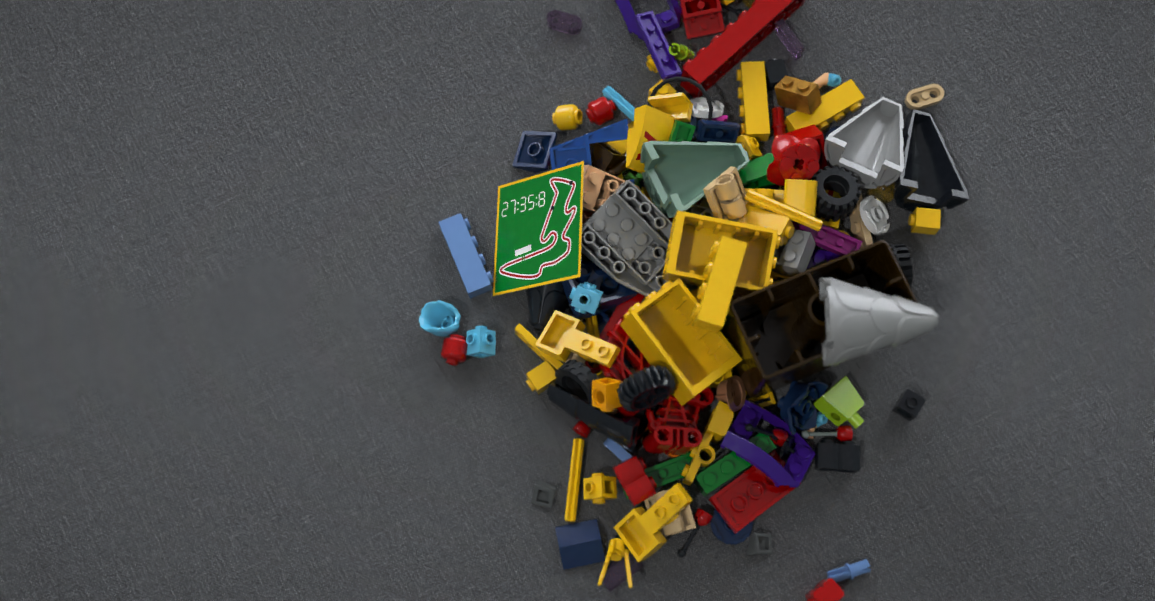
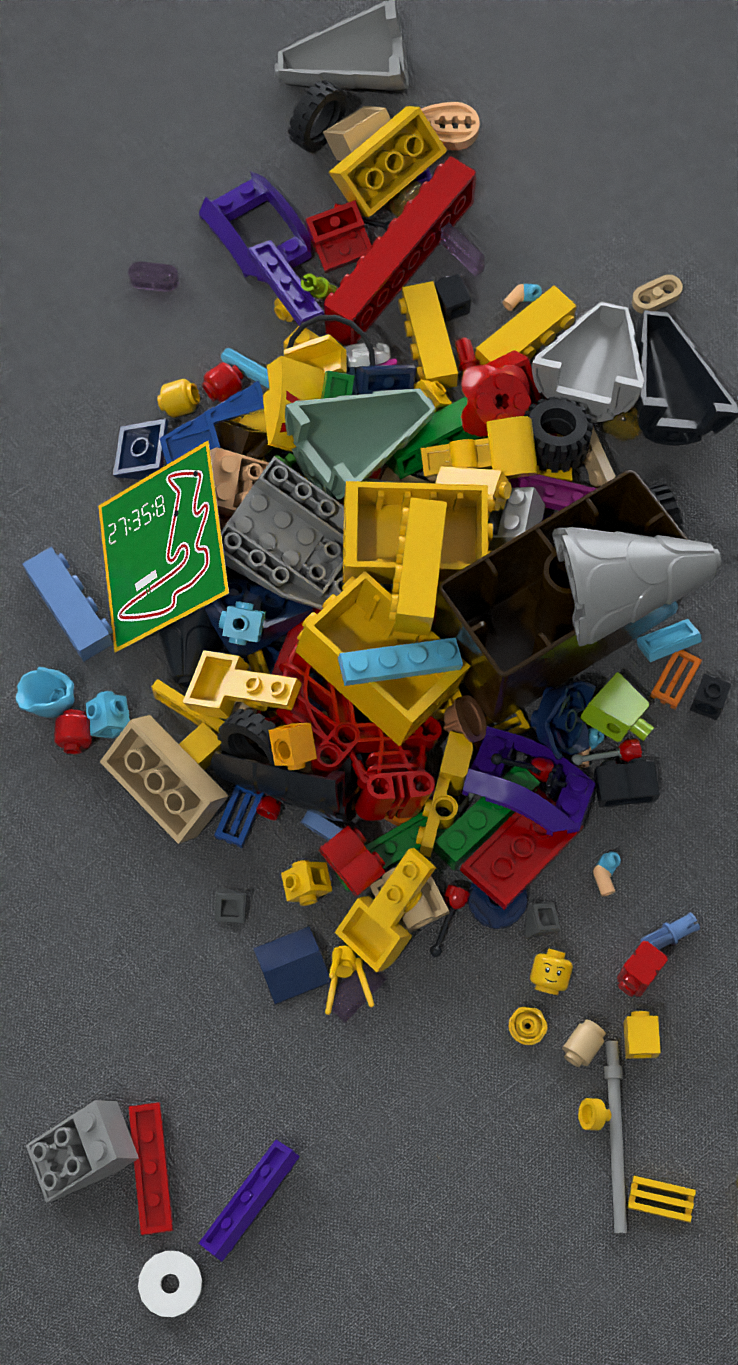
camera: 10 degrees left, 5 degrees down
(512, 396) = (163, 778): none -> tan brick
(552, 445) = (230, 838): none -> blue tile
(574, 480) = (269, 878): yellow axle -> none
(646, 388) = (345, 725): black gear -> none
(693, 350) = (400, 661): none -> medium azure plate
(727, 195) = (411, 454): tan plate -> none
(760, 584) = (551, 972): none -> yellow head
(784, 210) = (492, 462): yellow axle -> none
(798, 94) = (486, 316): pearl gold brick -> none
(810, 517) = (603, 871): none -> arm
(874, 215) = (616, 454): white tile -> none
(875, 398) = (665, 697): none -> orange tile
(887, 357) = (669, 640): none -> medium azure tile
(925, 221) = (687, 453): yellow brick -> none

